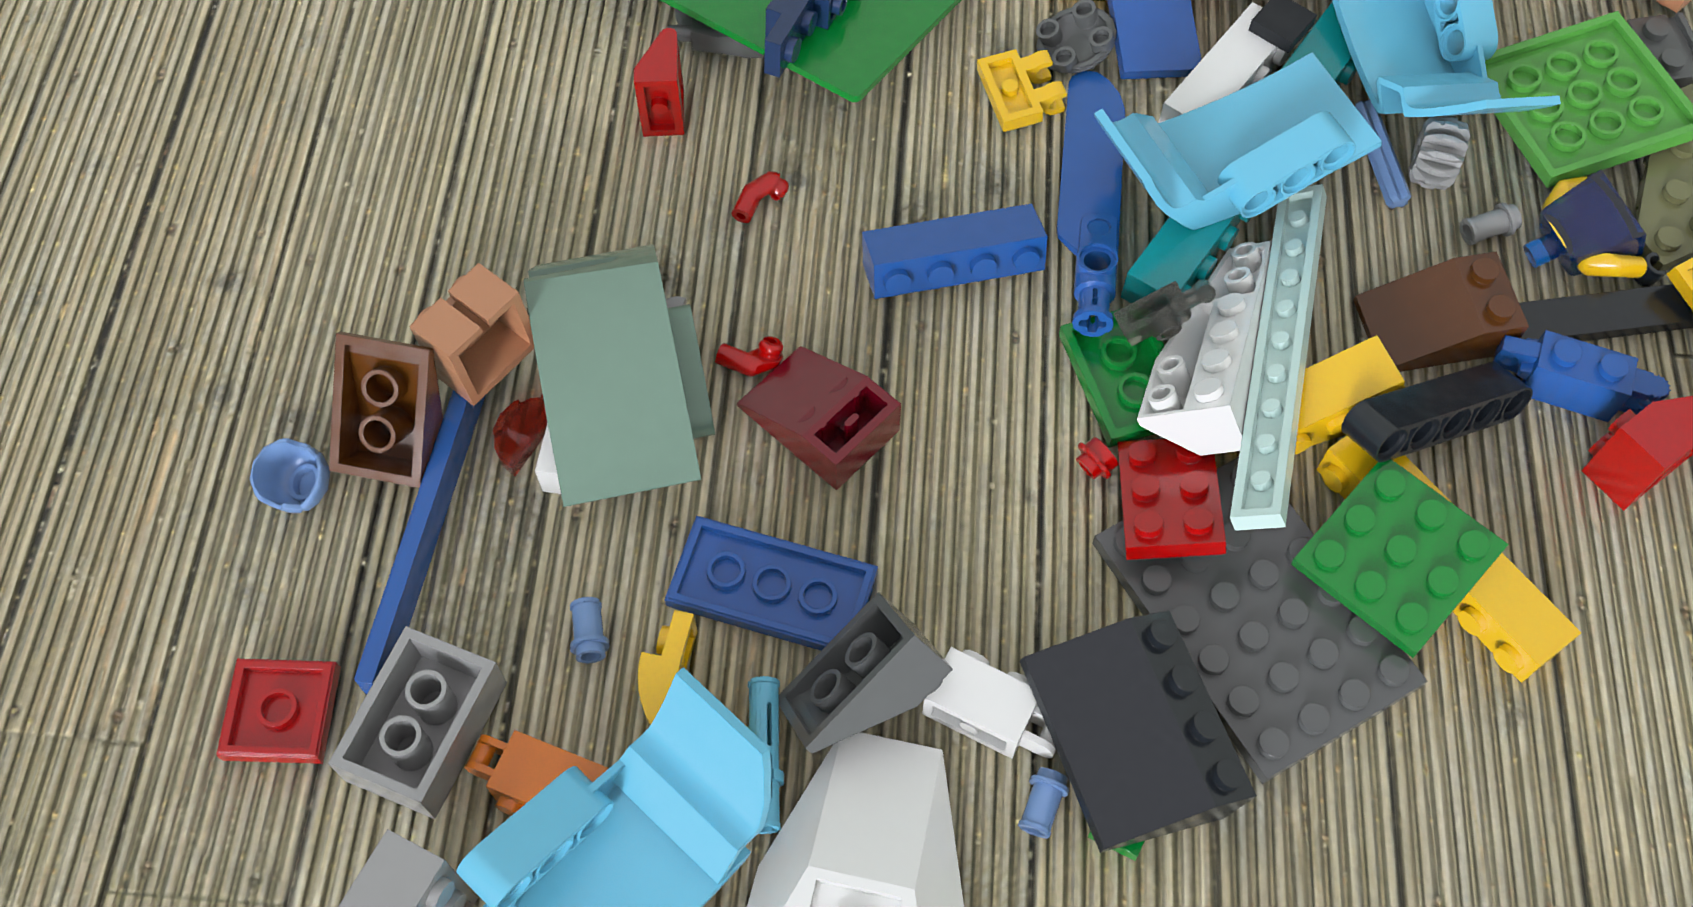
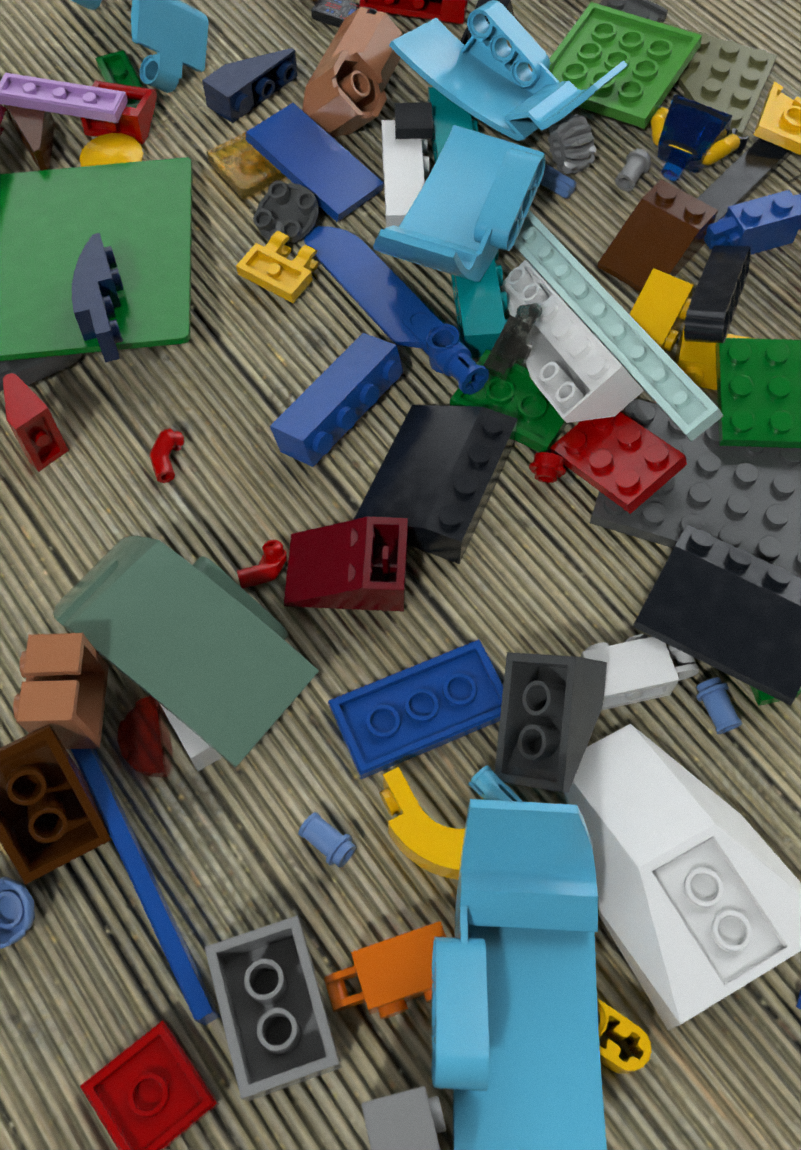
camera: 40 degrees left, 0 degrees up
(986, 394) = (441, 474): none -> black slope

